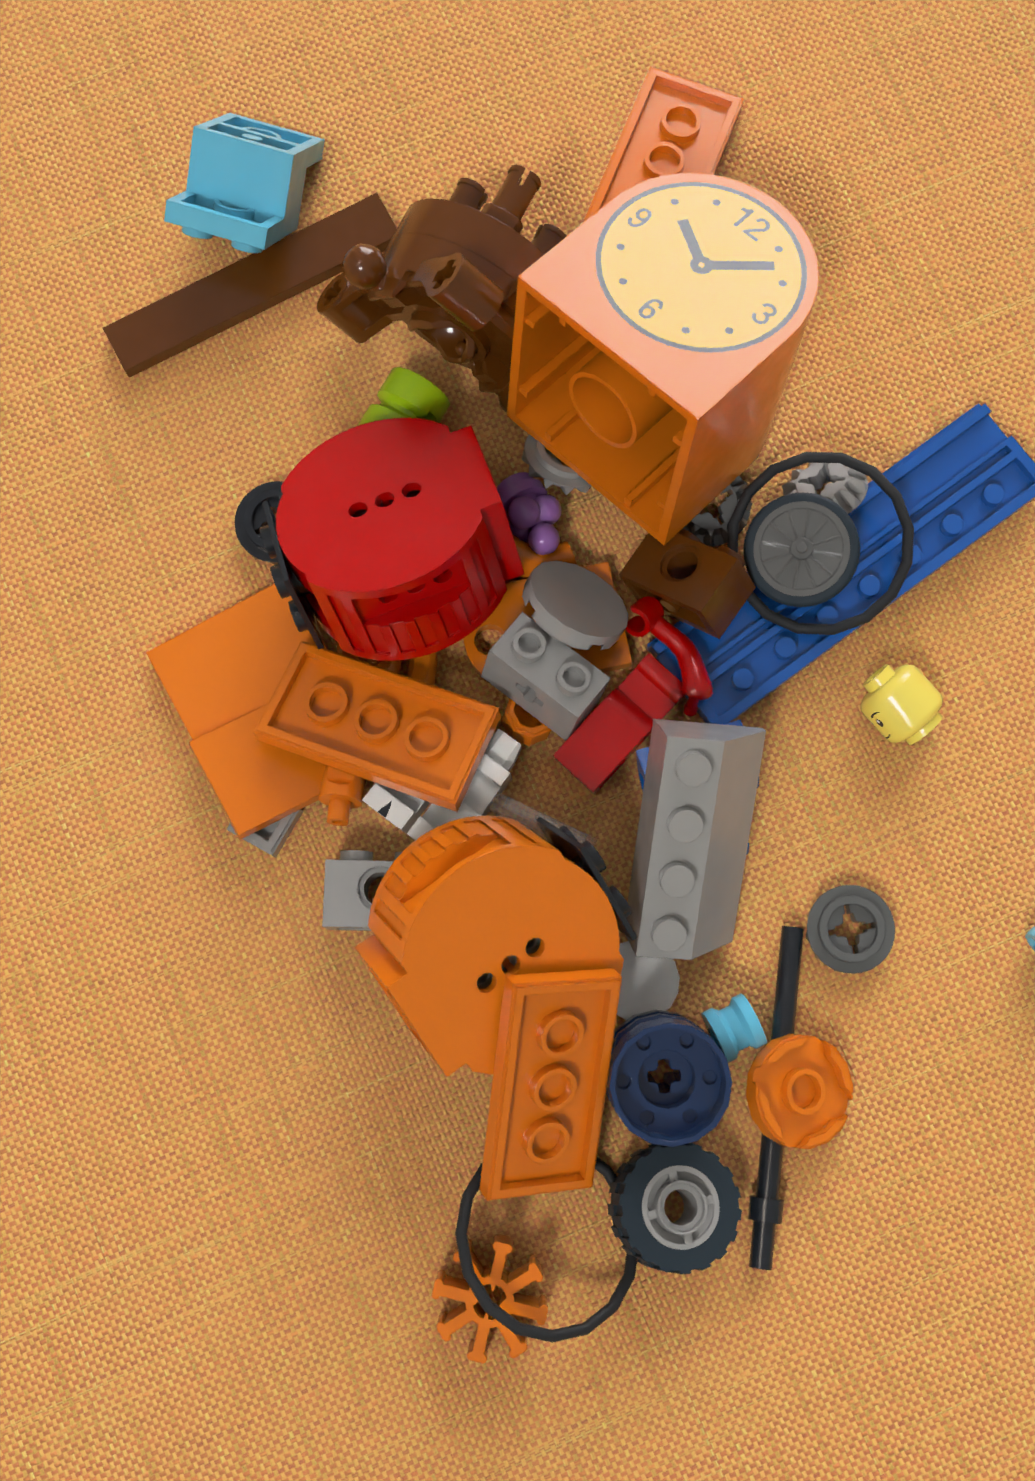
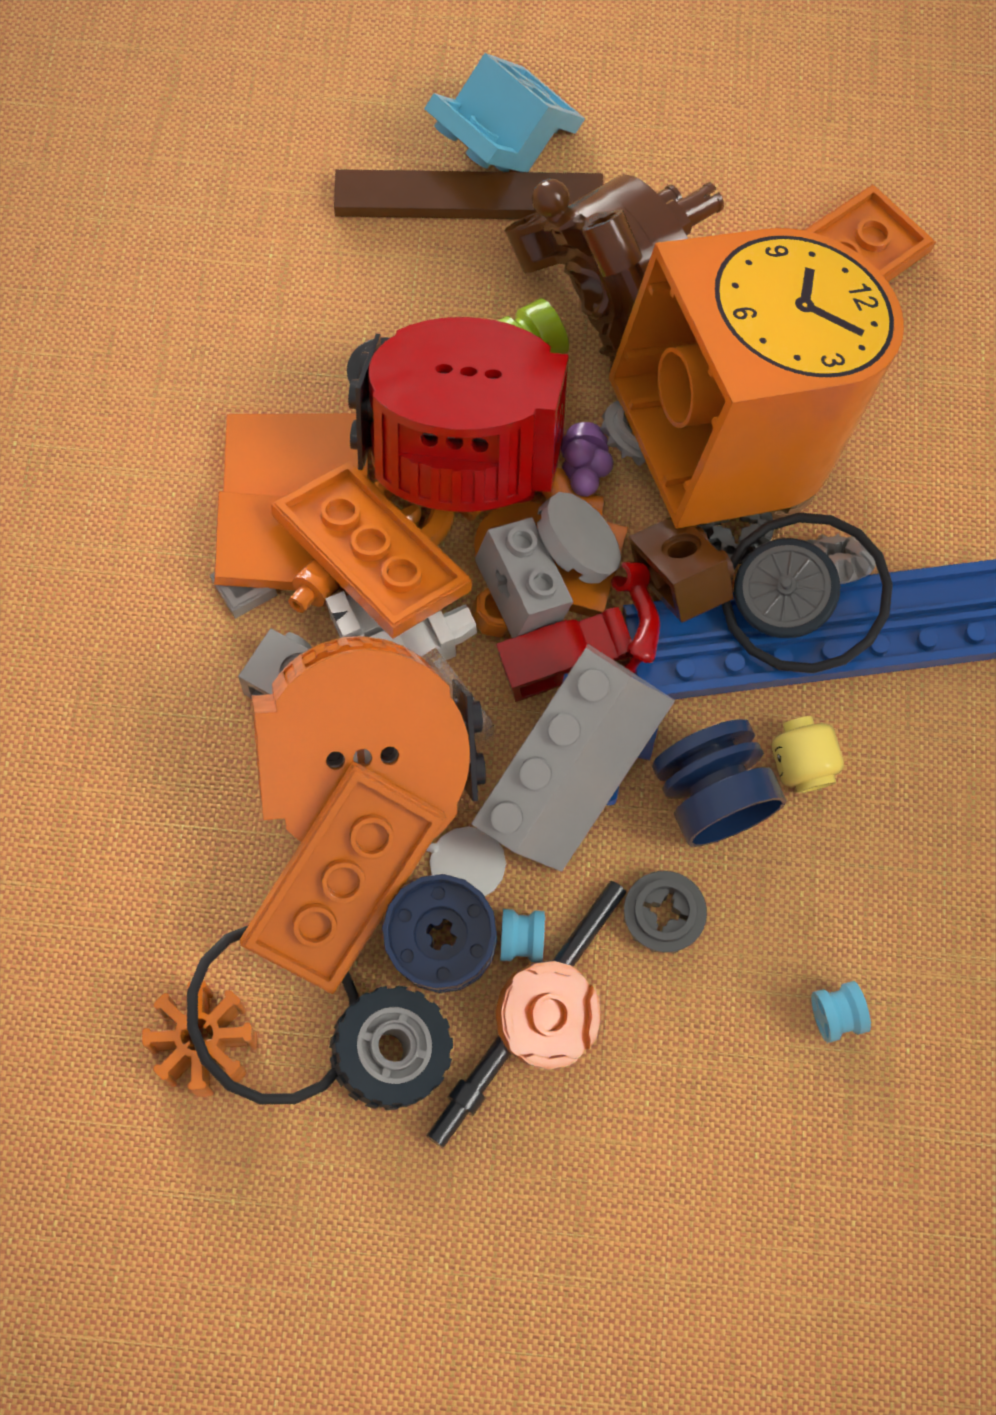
camera: 25 degrees right, 10 degrees down
(841, 782) = (716, 778): none -> dark blue wheel

